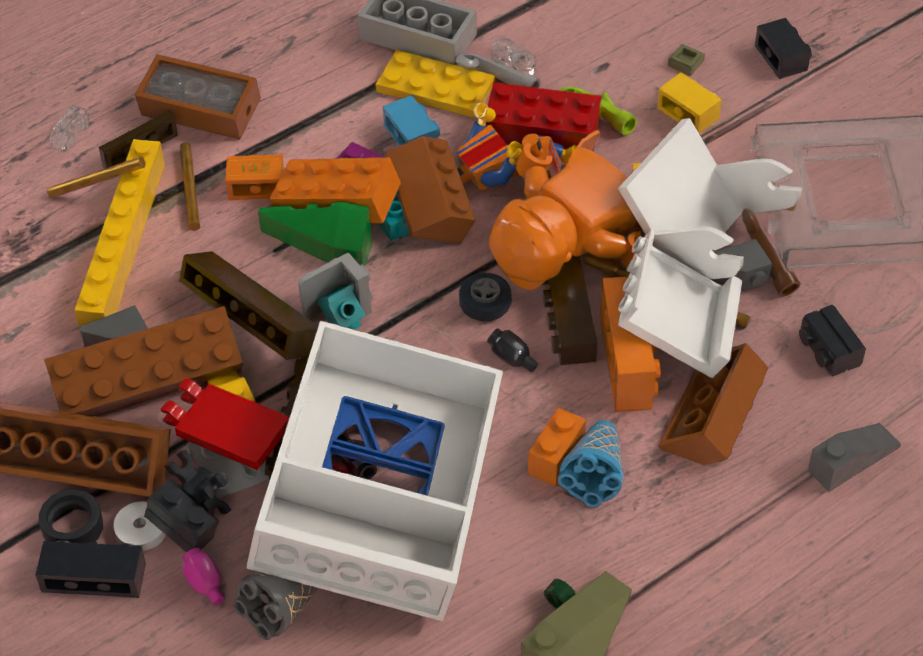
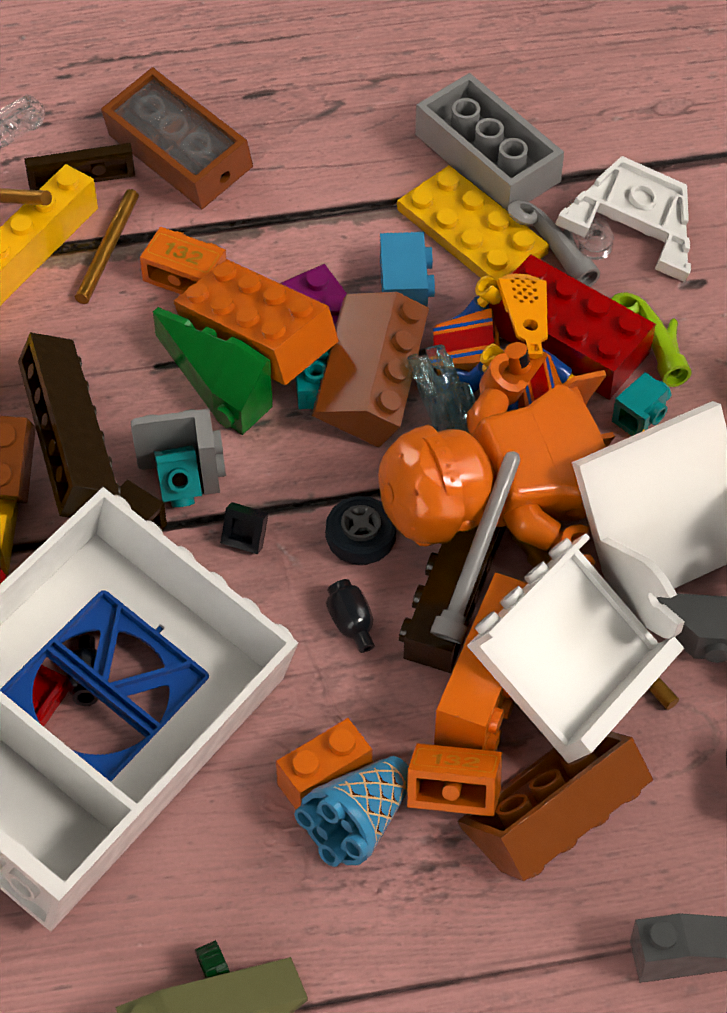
camera: 25 degrees right, 5 degrees up
(407, 324) = (244, 528): none -> black tile
(489, 188) = (443, 395): none -> clear light blue plate
(516, 110) = (527, 306): none -> light orange piece
(542, 27) = (641, 201): none -> white wing
(590, 324) = (451, 622): none -> light grey piece
(620, 150) = (641, 404): none -> teal brick
(647, 417) = (454, 779): none -> orange brick

